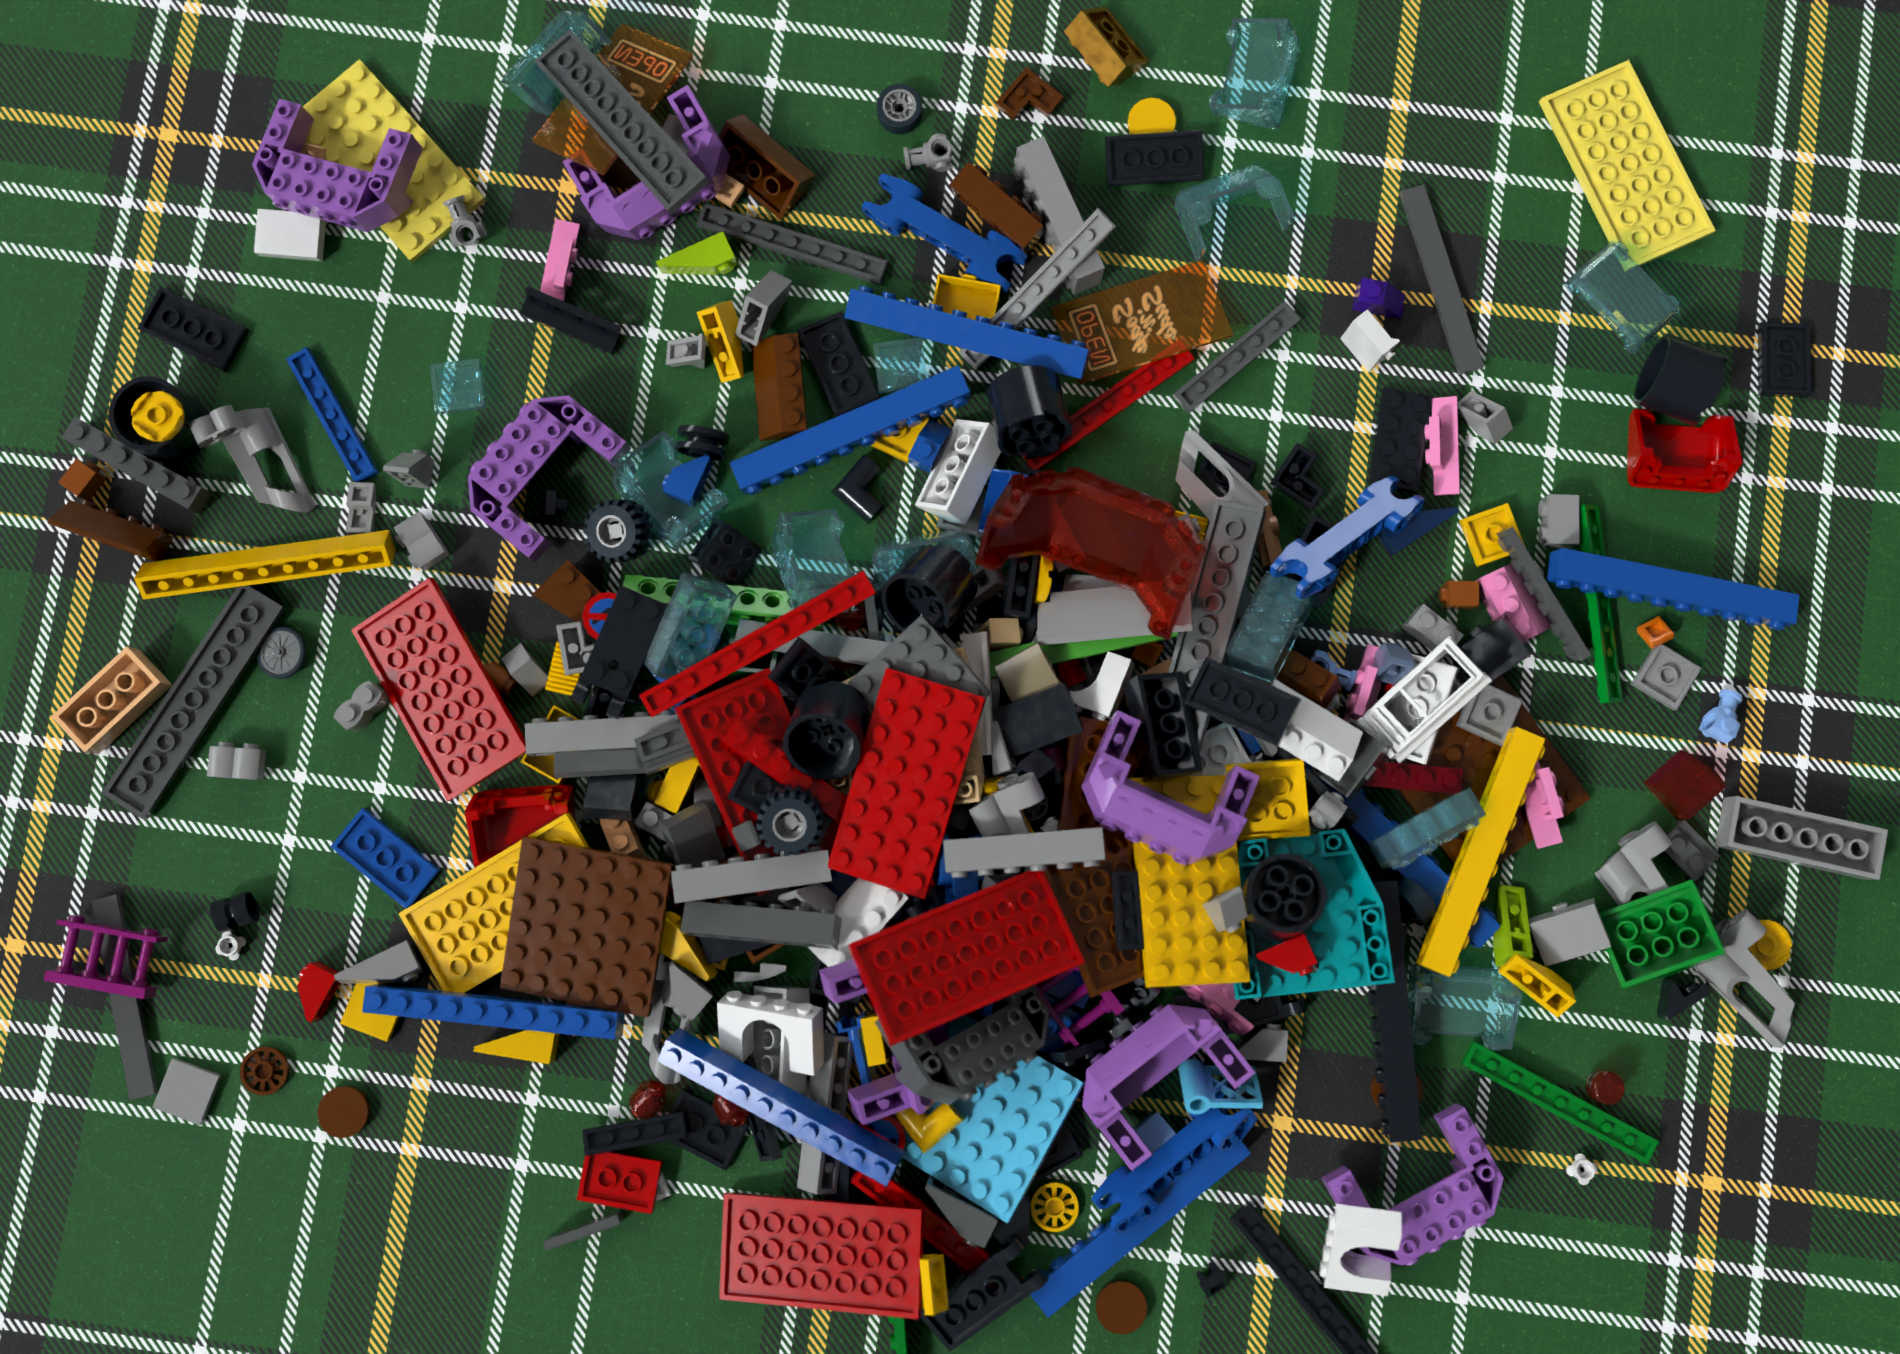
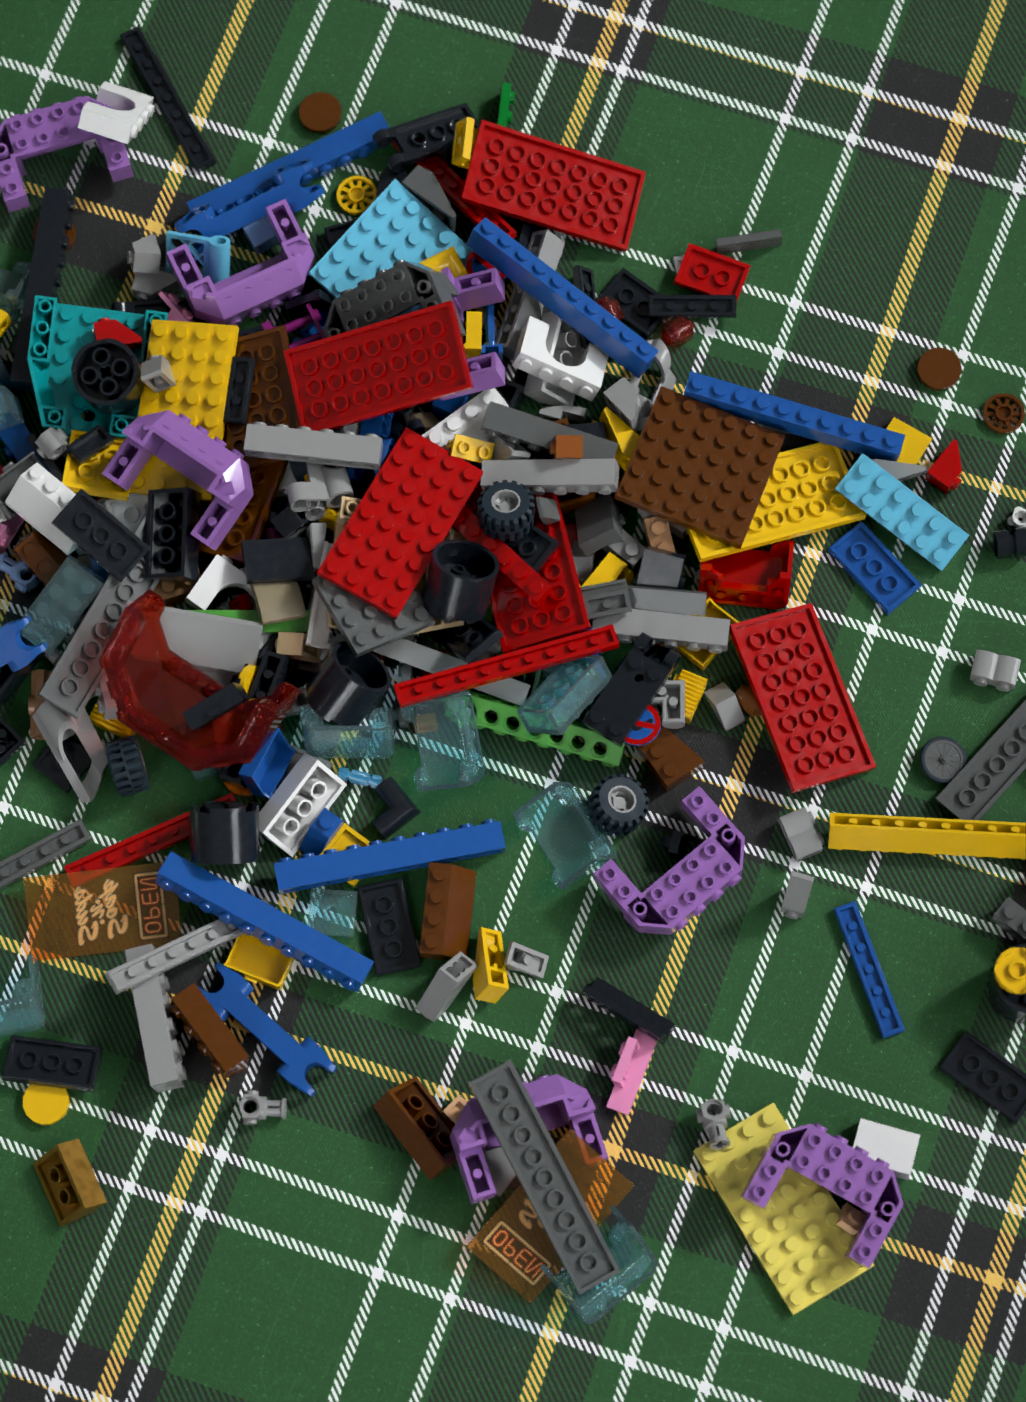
camera: 165 degrees left, 10 degrees down
(244, 436) = (947, 958): light grey panel -> none
(358, 923) = (902, 512): none -> medium azure plate
(359, 710) = (878, 695): light grey brick -> none
(362, 508) = (853, 876): light grey slope -> none
(457, 386) = (746, 972): clear light blue plate -> none
(524, 1045) = (782, 389): yellow slope -> none
(687, 480) = (547, 841): blue slope -> none
(702, 442) = (527, 869): black wheel -> none
(703, 258) = (492, 1048): lime slope -> none
(724, 552) = (527, 772): black bracket -> none
(733, 908) = (567, 447): none -> dark orange brick
(792, 243) = (400, 1045): dark grey tile -> none
(847, 892) = (470, 448): none -> yellow hinge
(891, 100) = (275, 1148): wheel -> none
(902, 515) = (359, 777): none -> dark azure axle
(1028, 90) = (155, 1154): reddish brown plate -> none
(1064, 527) = (215, 706): none -> black container
(1123, 1025) = (271, 314): black plate -> none
(1152, 469) = (127, 766): none -> black wheel
(1214, 1282) = (243, 115): black tile -> none
(1281, 1074) = (145, 255): none -> light grey slope
(1284, 819) = (89, 444): none -> black tile

